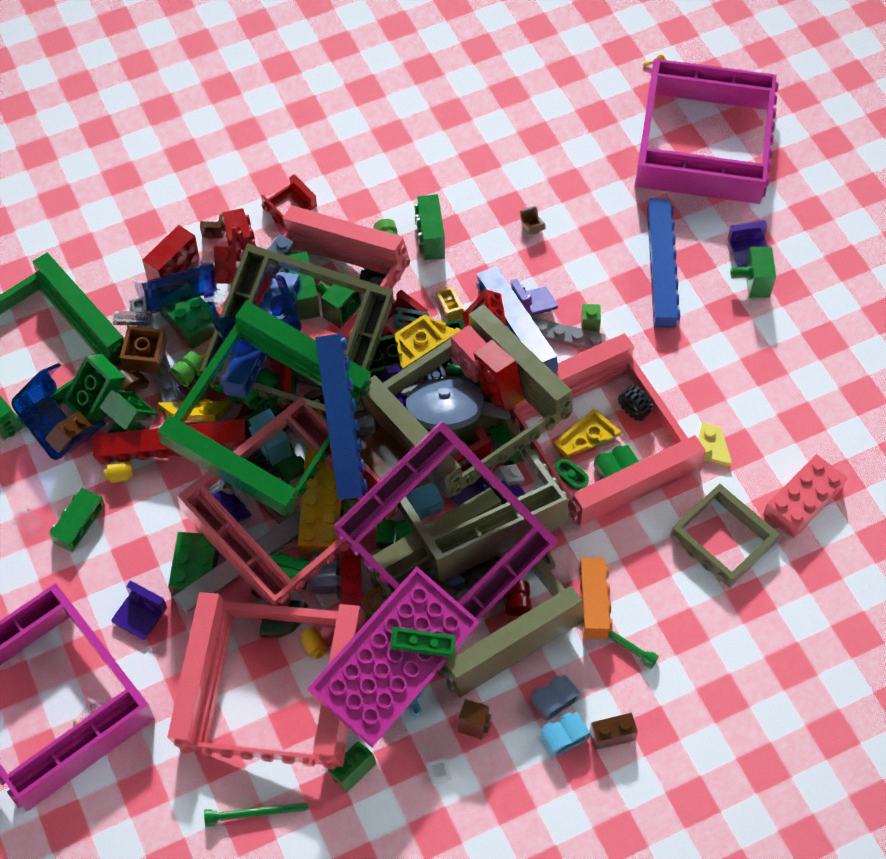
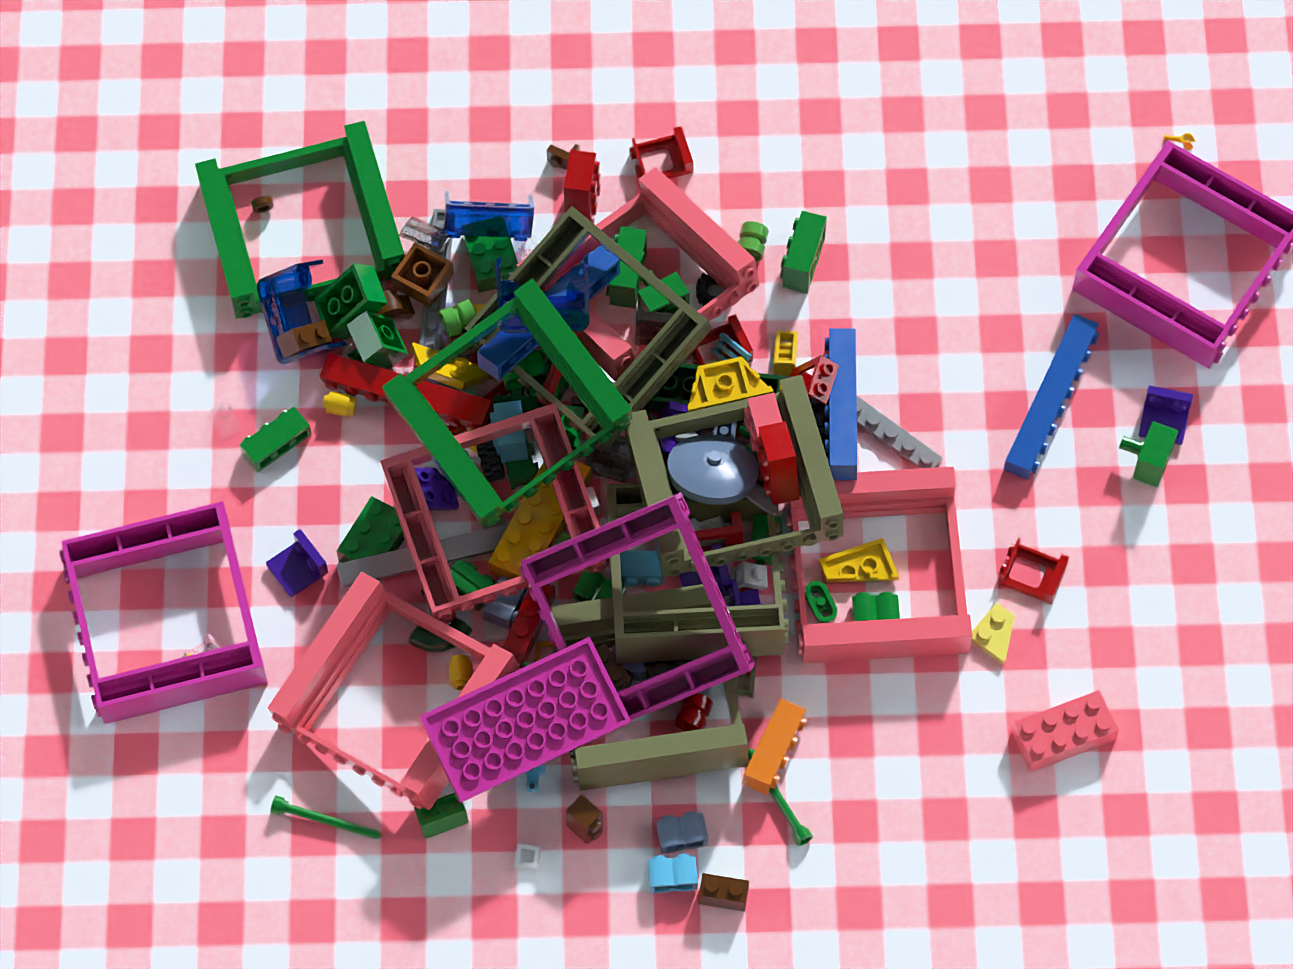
camera: 25 degrees right, 5 degrees up
(172, 254) = (499, 175): red brick -> none
(228, 258) = (553, 206): red bracket -> none
(280, 245) = (614, 217): sand blue brick -> none
(340, 416) = (579, 444): blue brick -> none
(343, 319) = (648, 325): none -> clear smoke slope
(381, 452) = (616, 495): reddish brown tile -> none
(422, 642) = (559, 718): green tile -> none
(531, 221) = (927, 287): reddish brown bracket -> none
(534, 300) = (879, 385): bracket -> none
(591, 317) = (934, 431): bright green brick -> none
(636, 403) = (931, 551): black tyre -> none
(732, 389) = (1051, 579): none -> red window
(742, 513) = (1001, 759): olive window -> none

